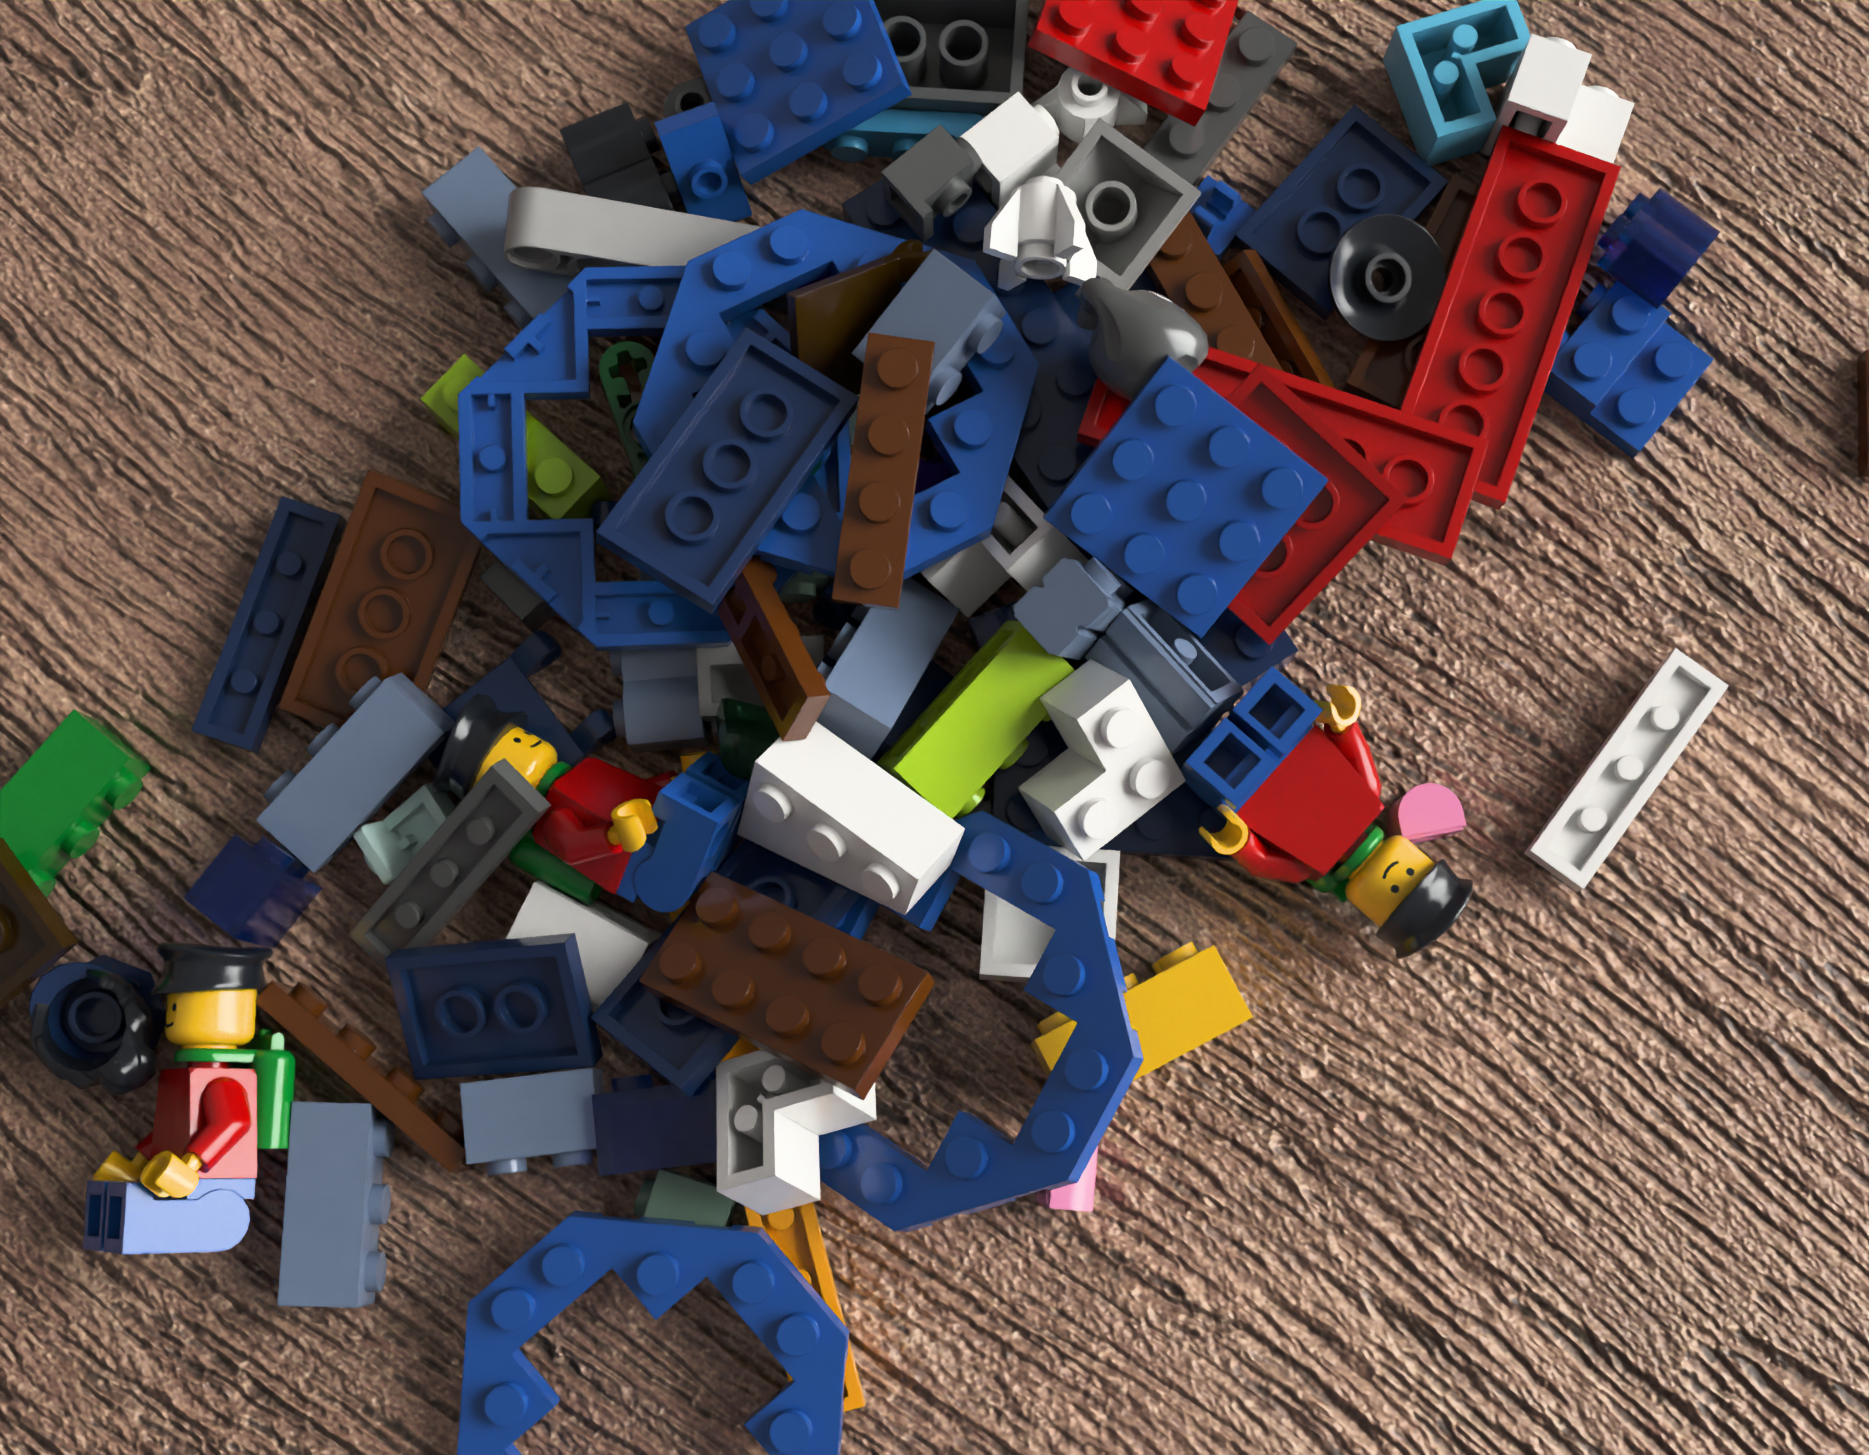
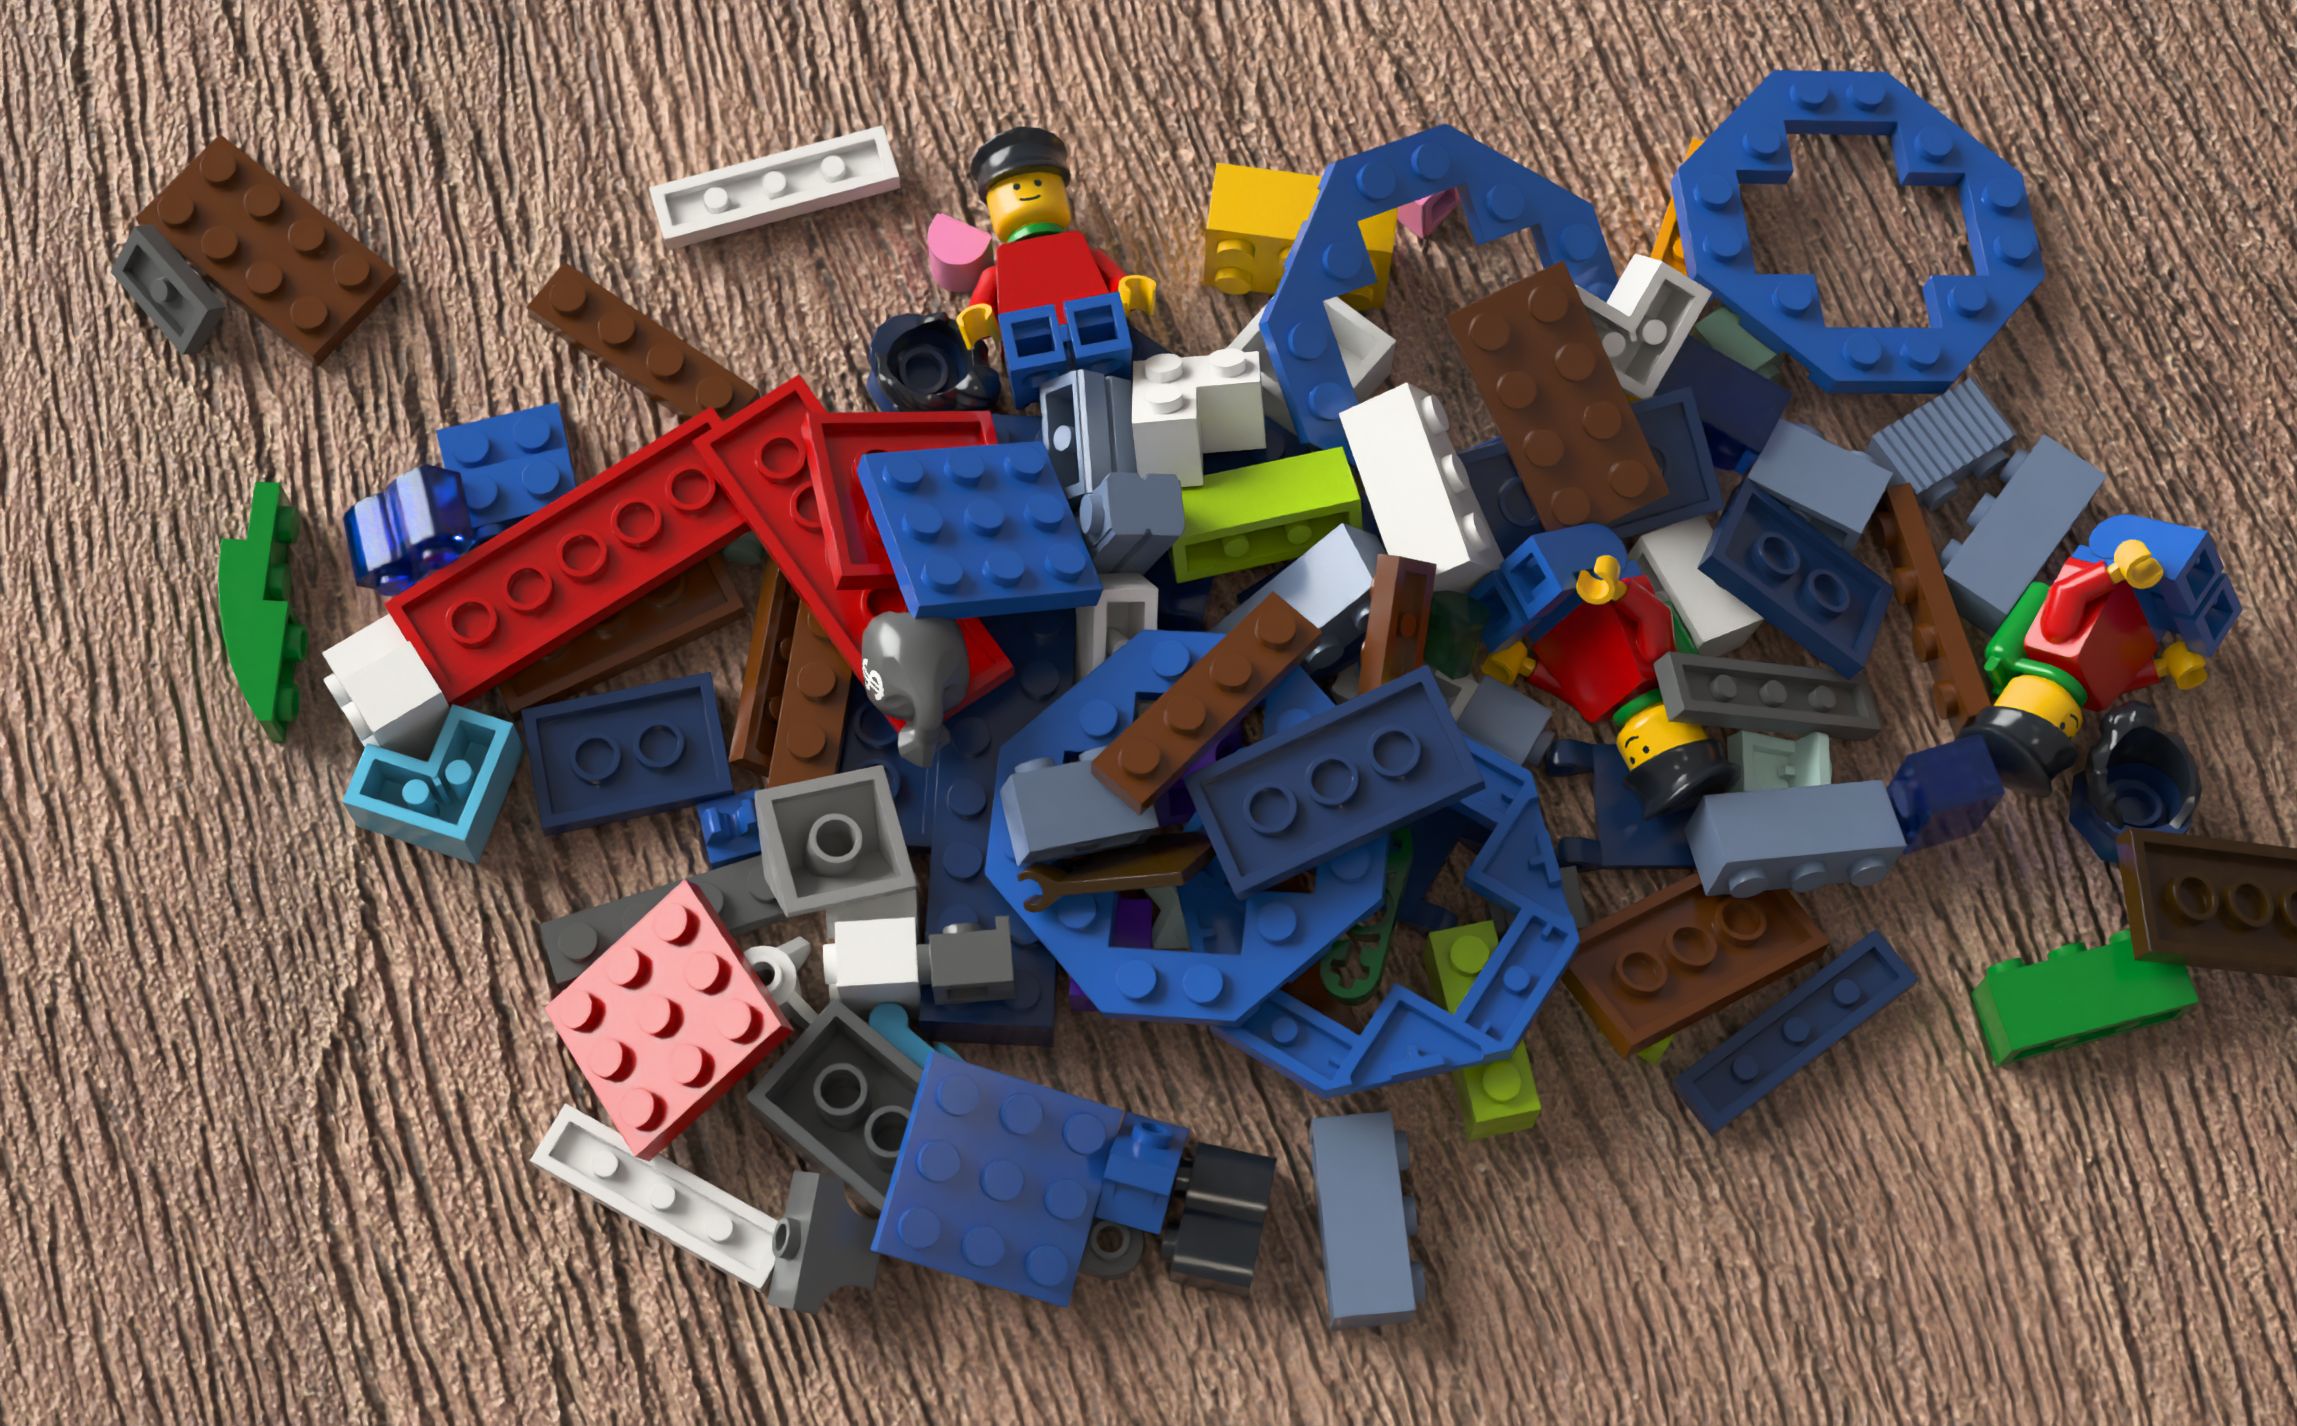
camera: 150 degrees left, 10 degrees down
(449, 1243) = (1945, 444): none -> sand blue brick
(575, 231) = (1249, 1107): light grey beam -> none
(1040, 235) = (919, 837): white brick -> none
(1384, 673) = (927, 368): none -> piece
(1410, 270) = (647, 651): black dish -> none
(1609, 549) = (637, 347): none -> reddish brown plate
(1701, 98) = (255, 614): none -> green slope

